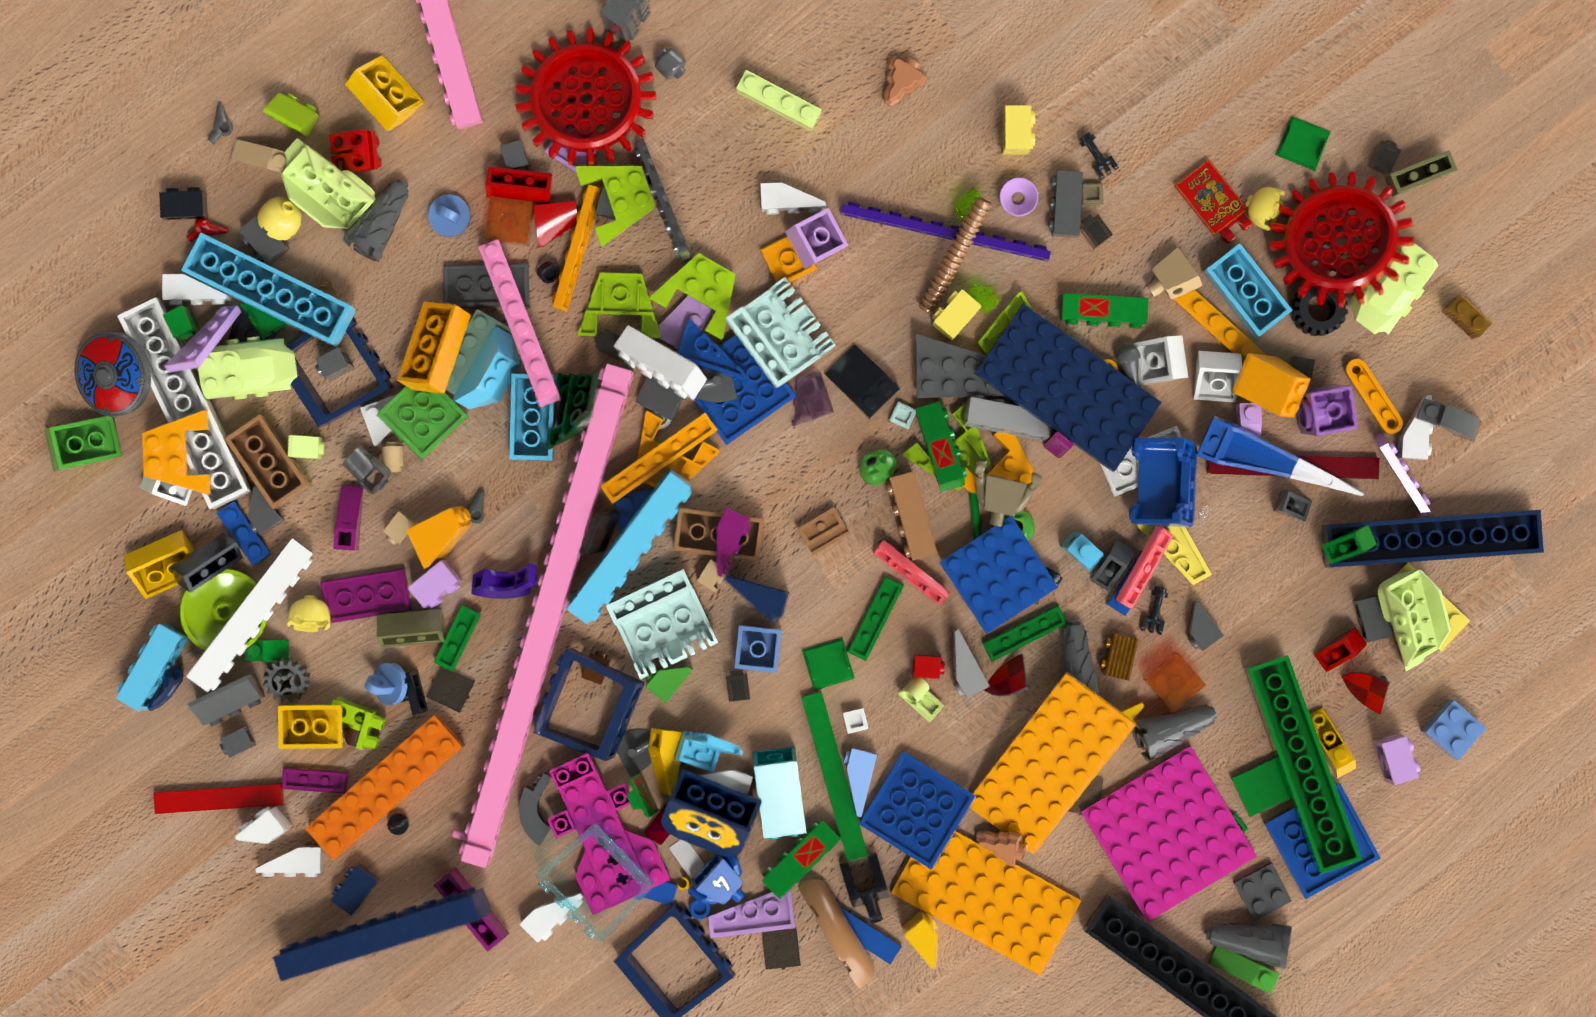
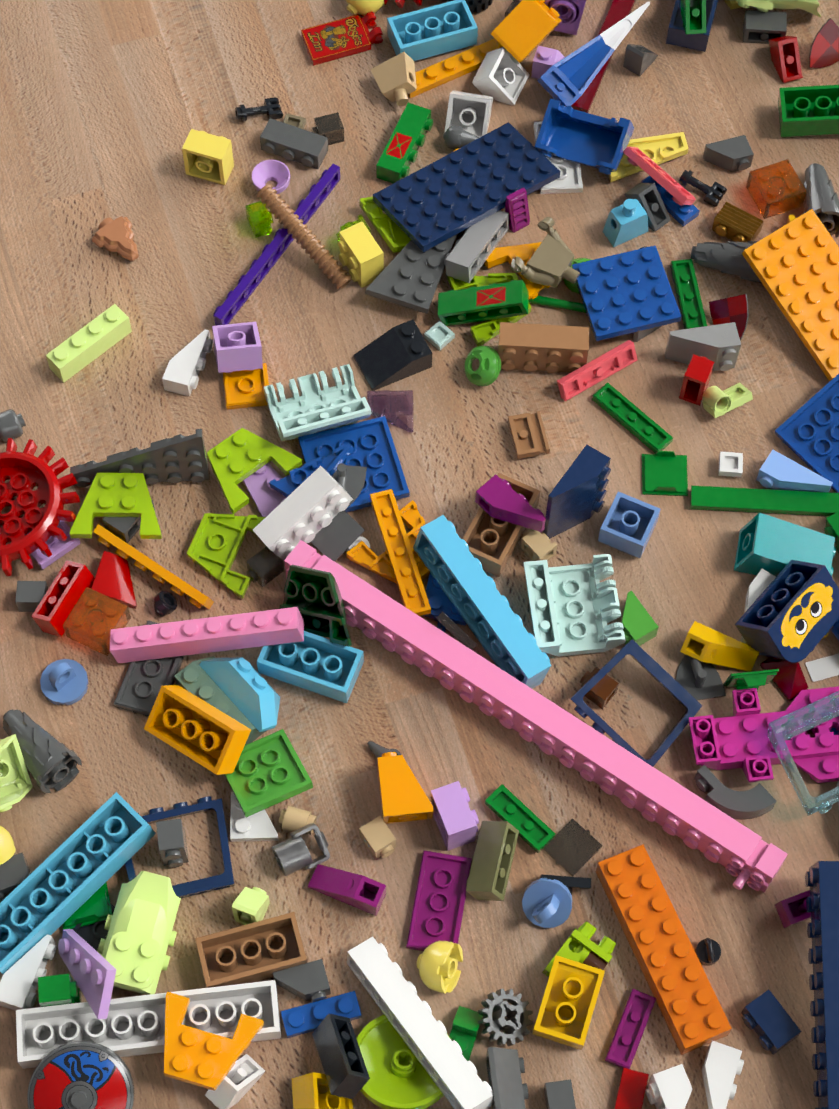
camera: 75 degrees left, 25 degrees down
(504, 584) = (479, 743): dark purple arch -> none
(703, 750) = (717, 610): medium azure plate -> none
(738, 686) = (662, 558): clear smoke brick -> none

